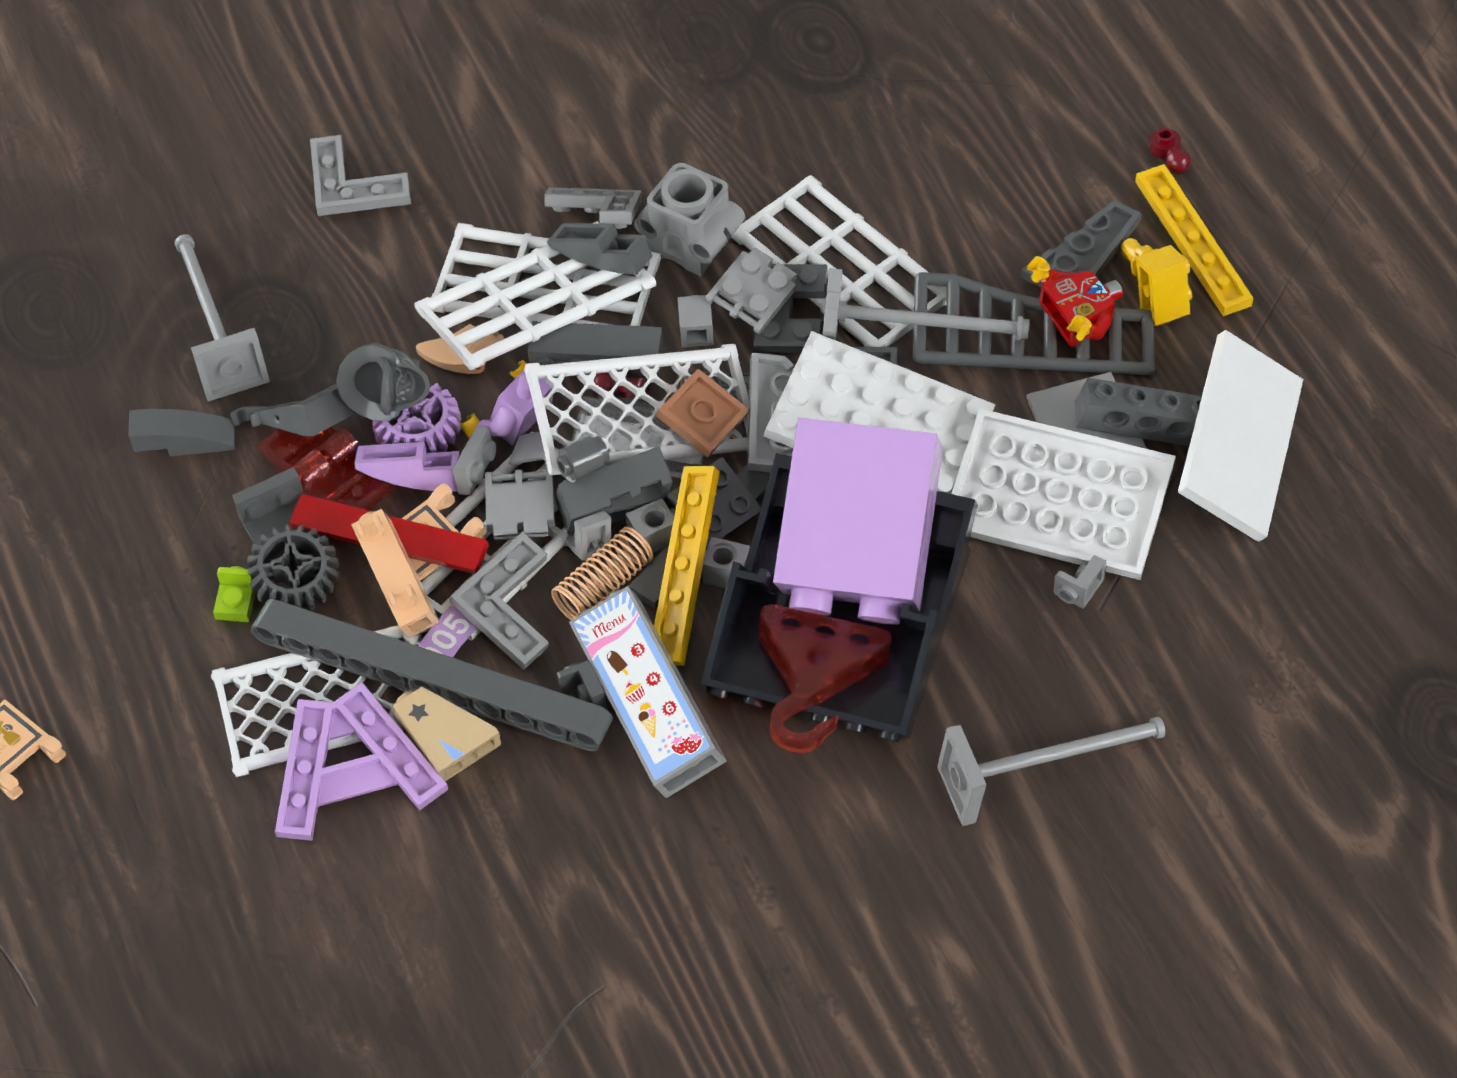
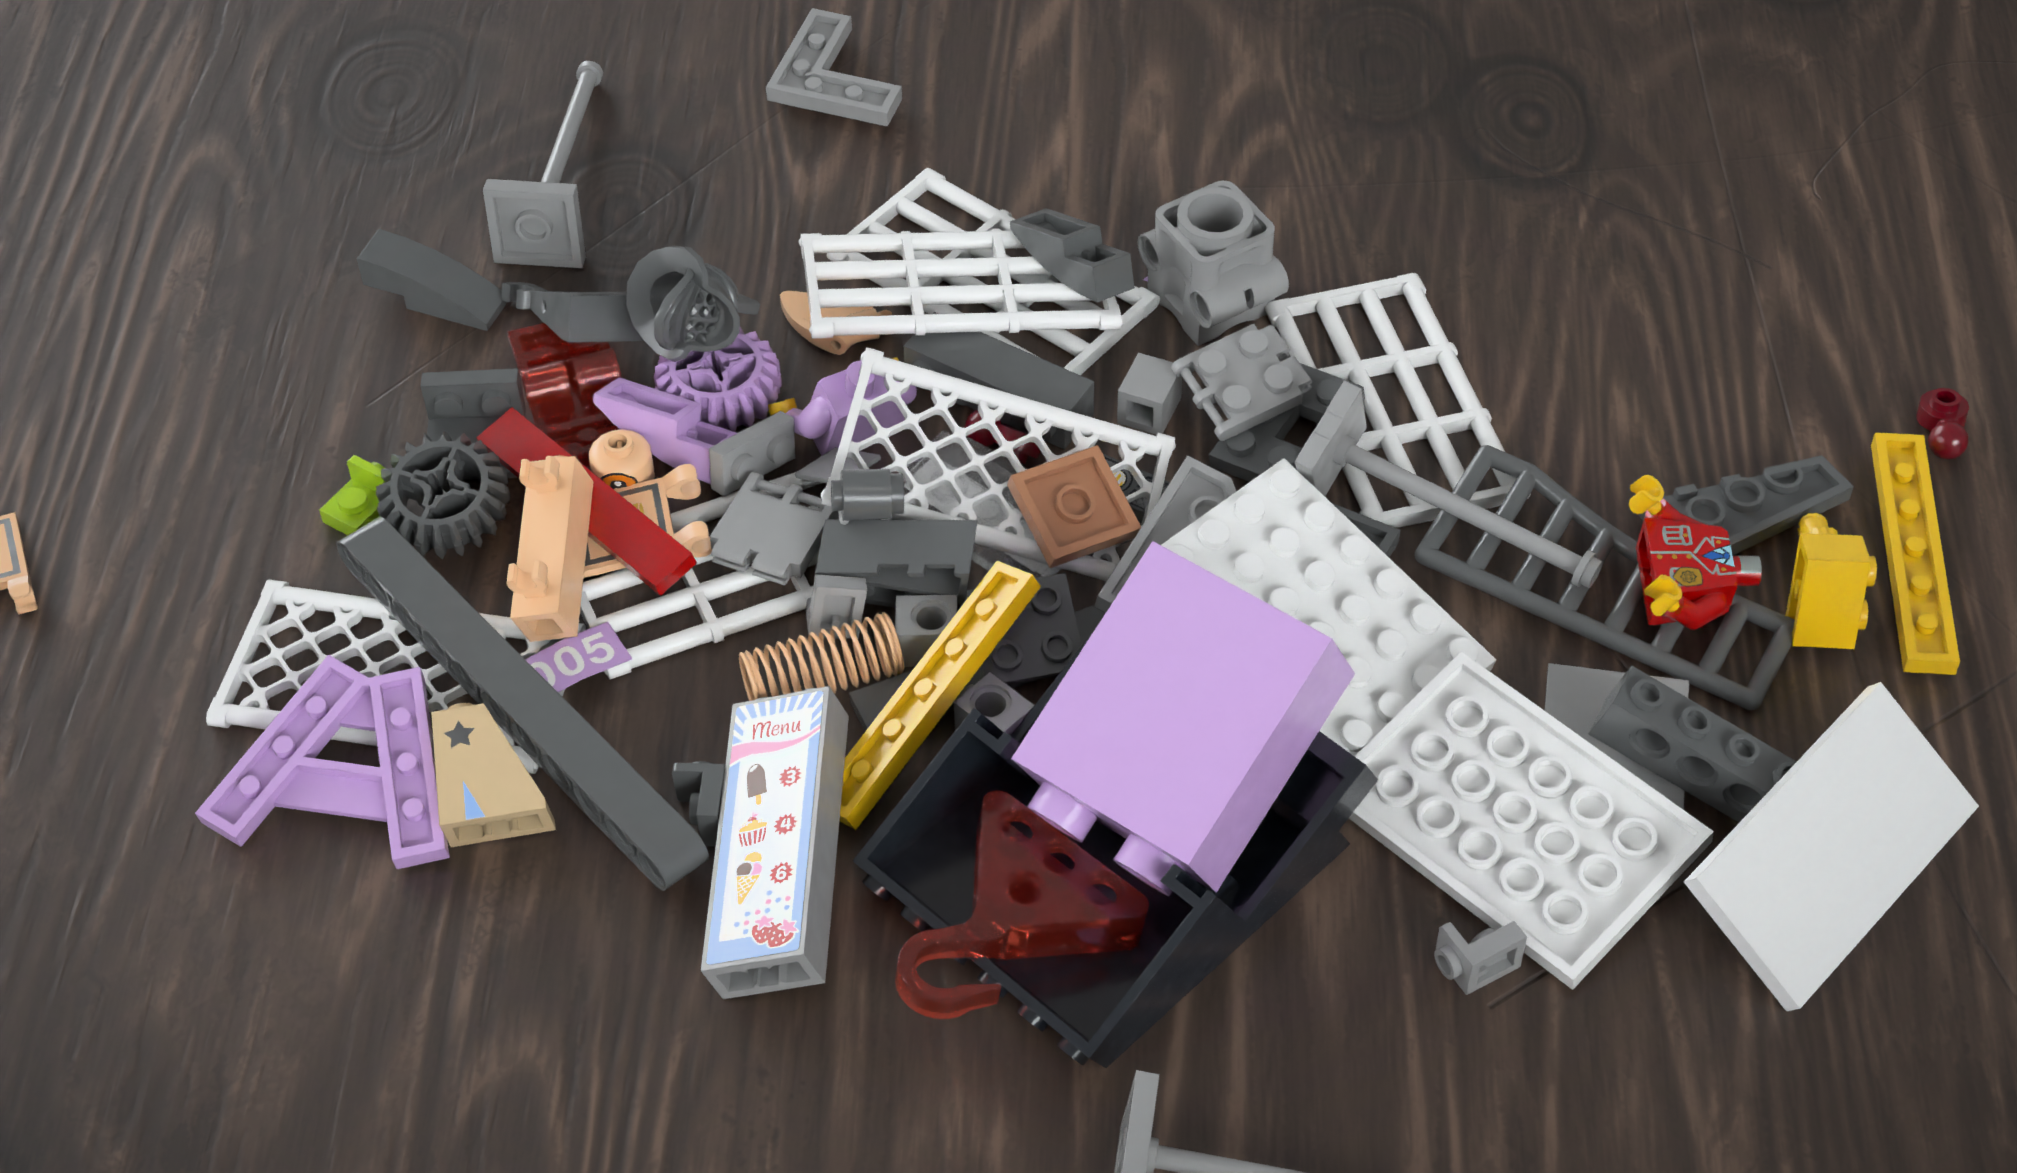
camera: 25 degrees right, 5 degrees down
(395, 497) = (621, 458): none -> light nougat head
(483, 604) = (650, 621): light grey plate -> none
(615, 206) = (1111, 207): light grey plate -> none

